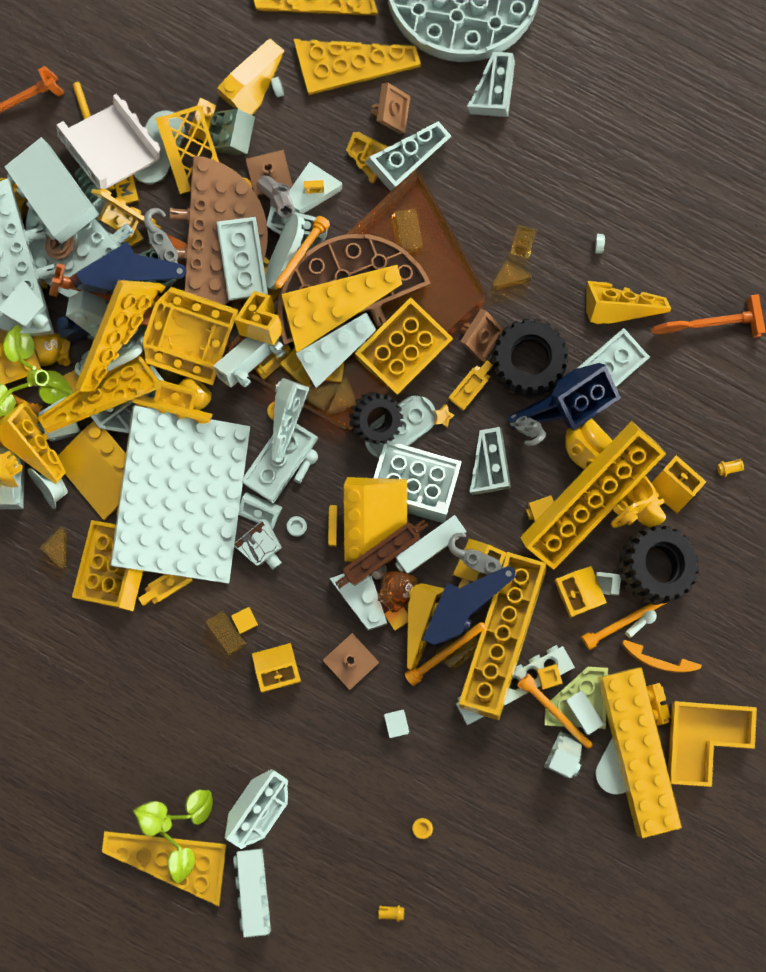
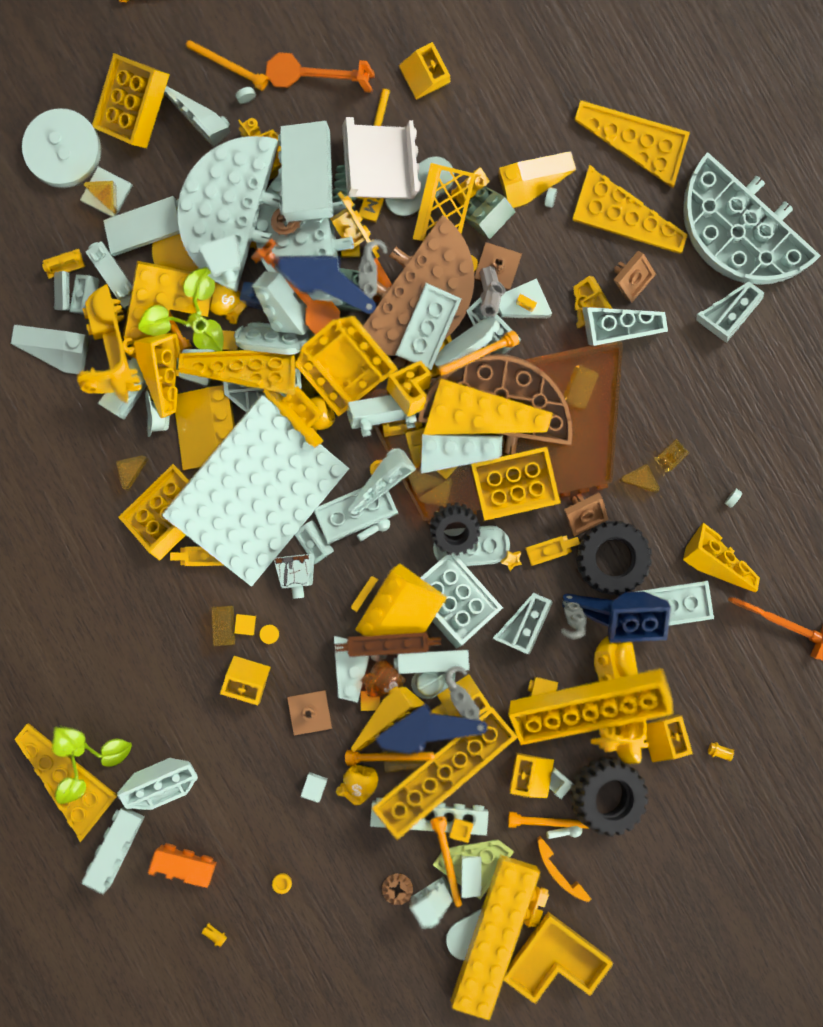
camera: 35 degrees right, 5 degrees up
(100, 46) = (425, 71): none -> yellow slope
(117, 327) = (289, 321): yellow wing -> none
(271, 615) = (269, 634): none -> yellow tile
(296, 526) = (335, 574): light aqua tile -> none
(324, 867) = (183, 865): none -> orange wedge
(434, 695) = (358, 784): none -> yellow piece
(440, 568) = (429, 683): none -> light aqua piece
(523, 776) = (405, 885): none -> medium nougat gear

